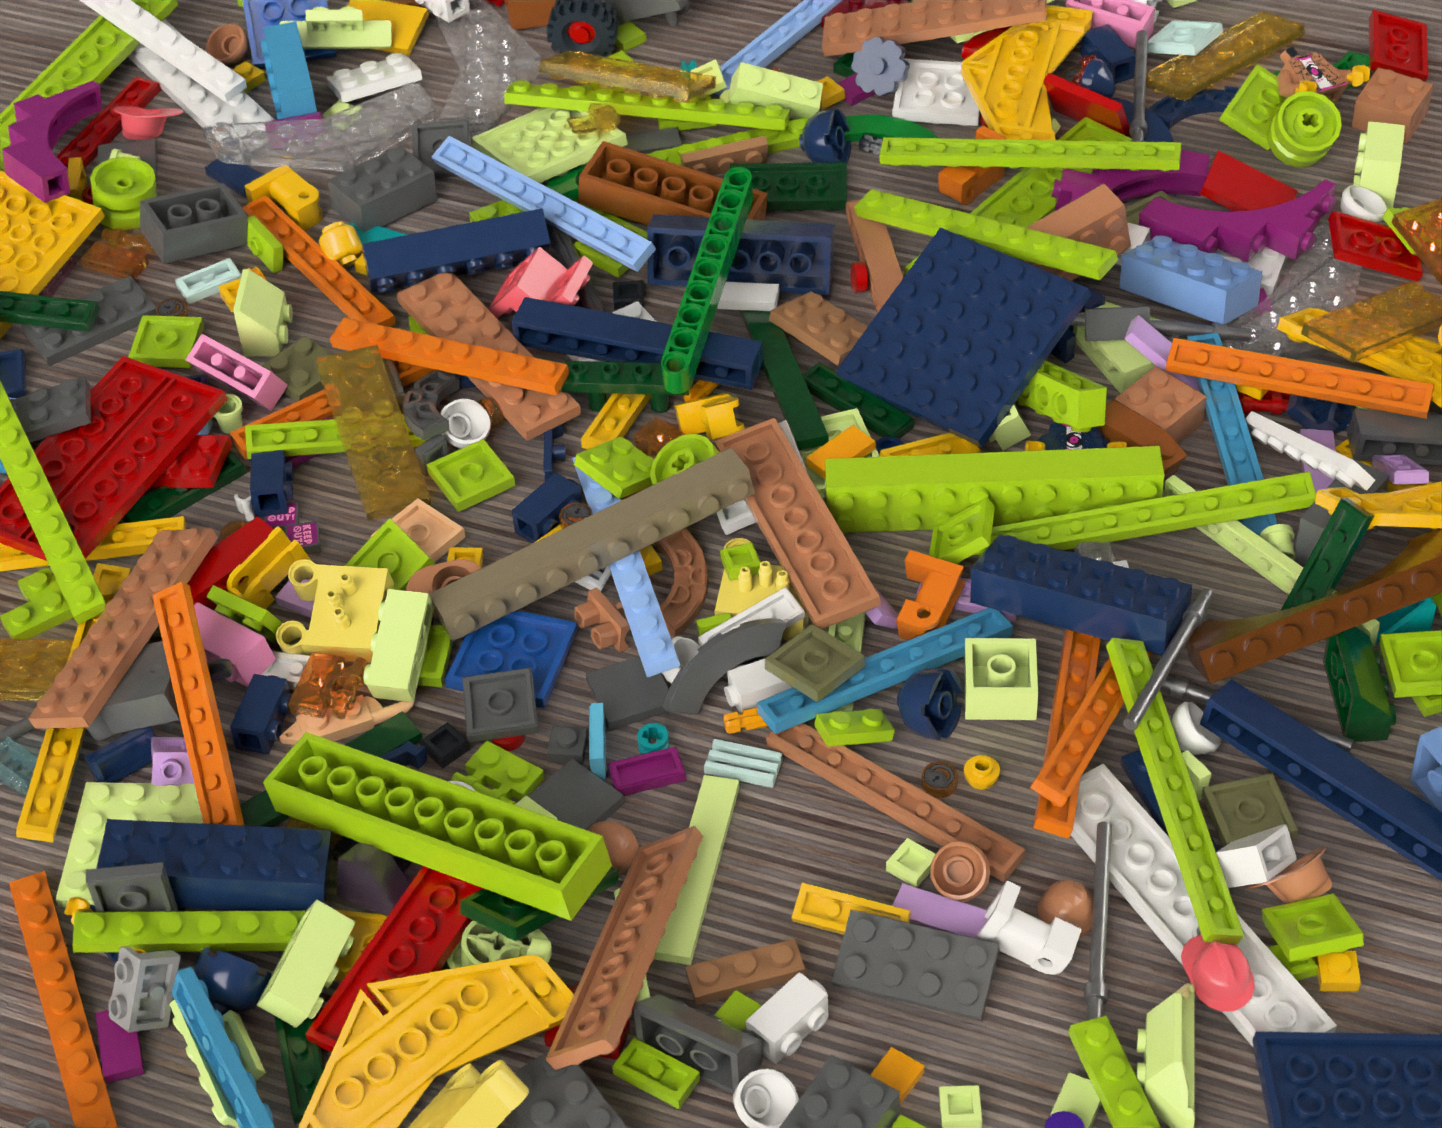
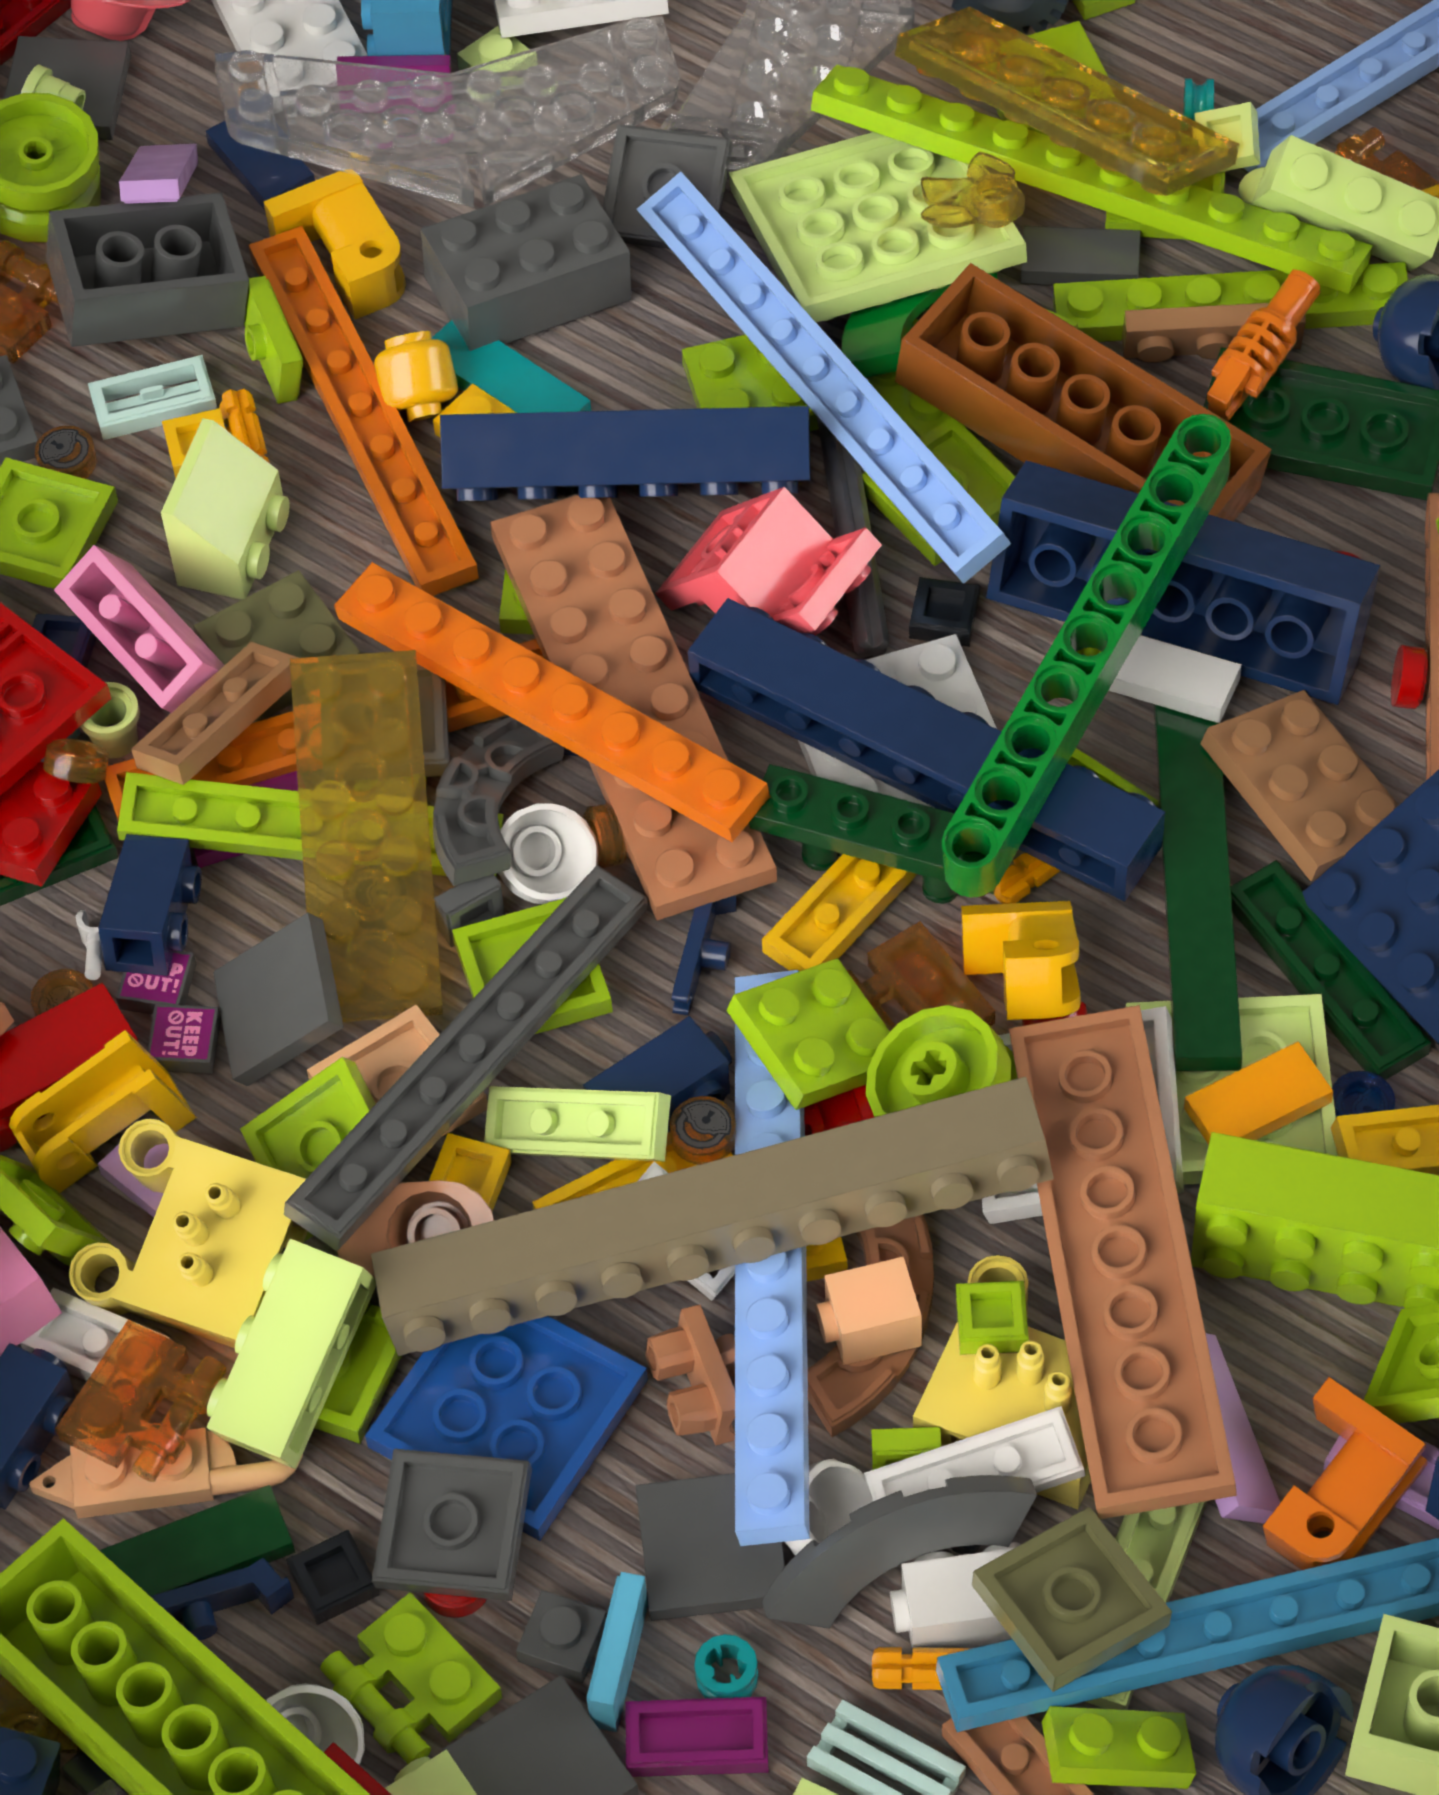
camera: 15 degrees right, 10 degrees up
(188, 183) = (158, 173): none -> lavender tile
(217, 428) = (76, 761): none -> clear orange tile
(283, 394) = (215, 714): none -> medium nougat plate
(347, 508) = (278, 999): none -> dark grey tile
(450, 509) = (464, 1059): none -> dark grey tile
(514, 526) = (578, 1123): none -> yellowish green tile
(681, 573) = (870, 1311): none -> light nougat brick
(753, 147) = (1261, 345): none -> orange hinge

